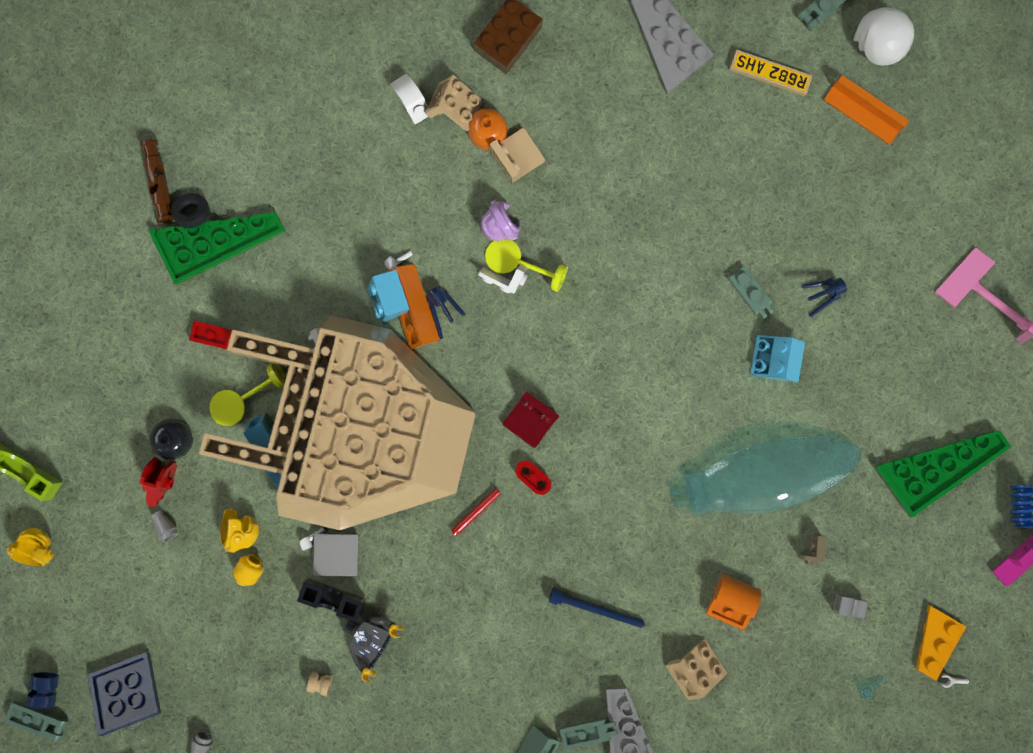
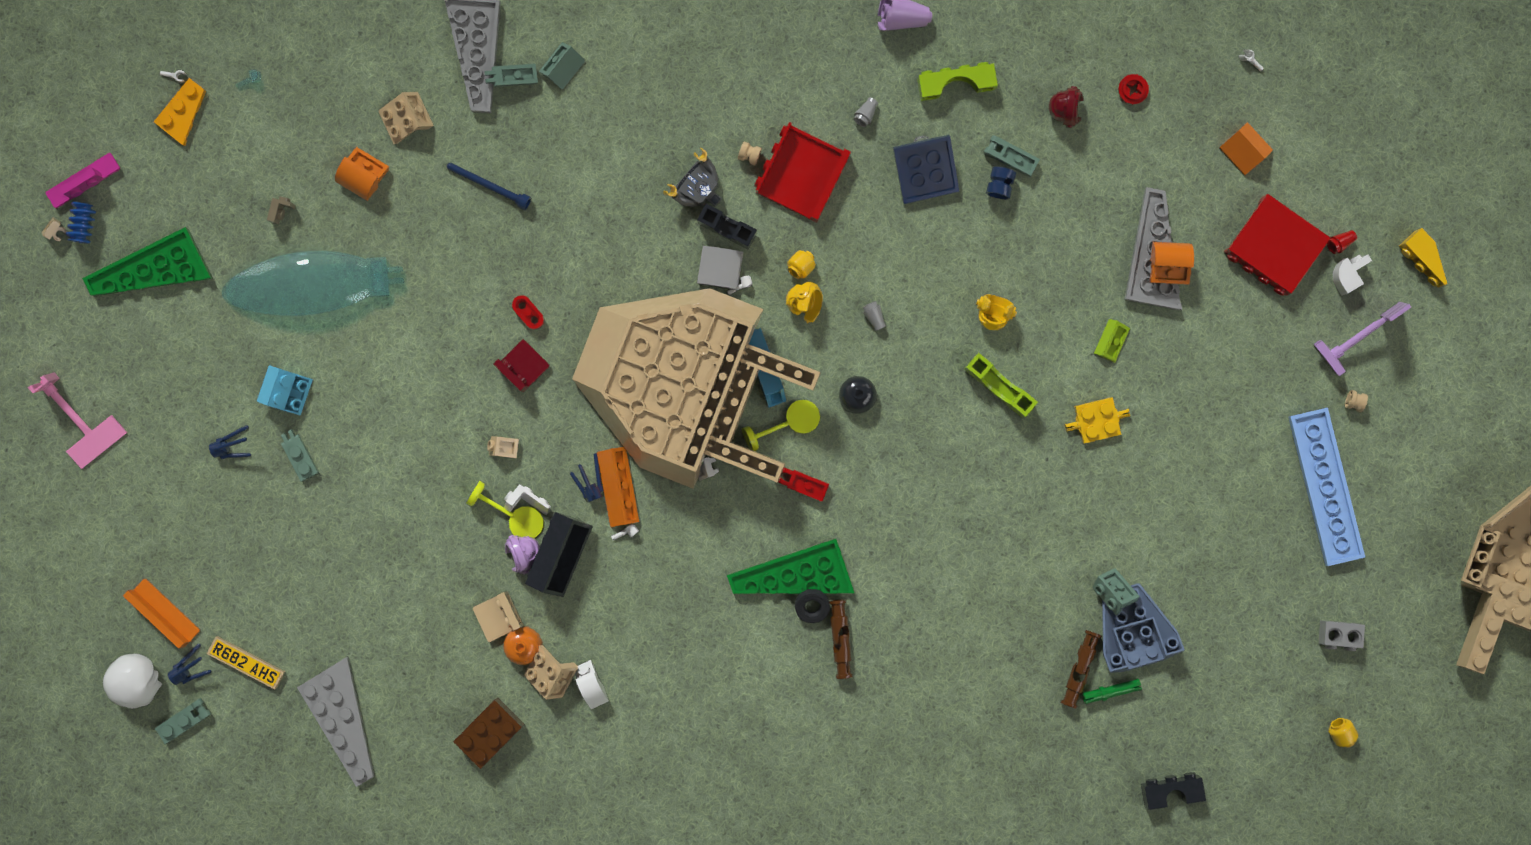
camera: 170 degrees left, 0 degrees up
(157, 480) = (873, 356): red hinge -> none
(260, 670) = (801, 172): none -> red panel
(387, 296) = (637, 497): medium azure slope -> none
(461, 225) = (558, 554): none -> black piece
(475, 512) = (586, 288): red bar -> none
(538, 331) = (503, 447): none -> tan bracket
(835, 52) = (180, 673): none -> dark blue plant
(850, 606) = (256, 155): light grey leg -> none

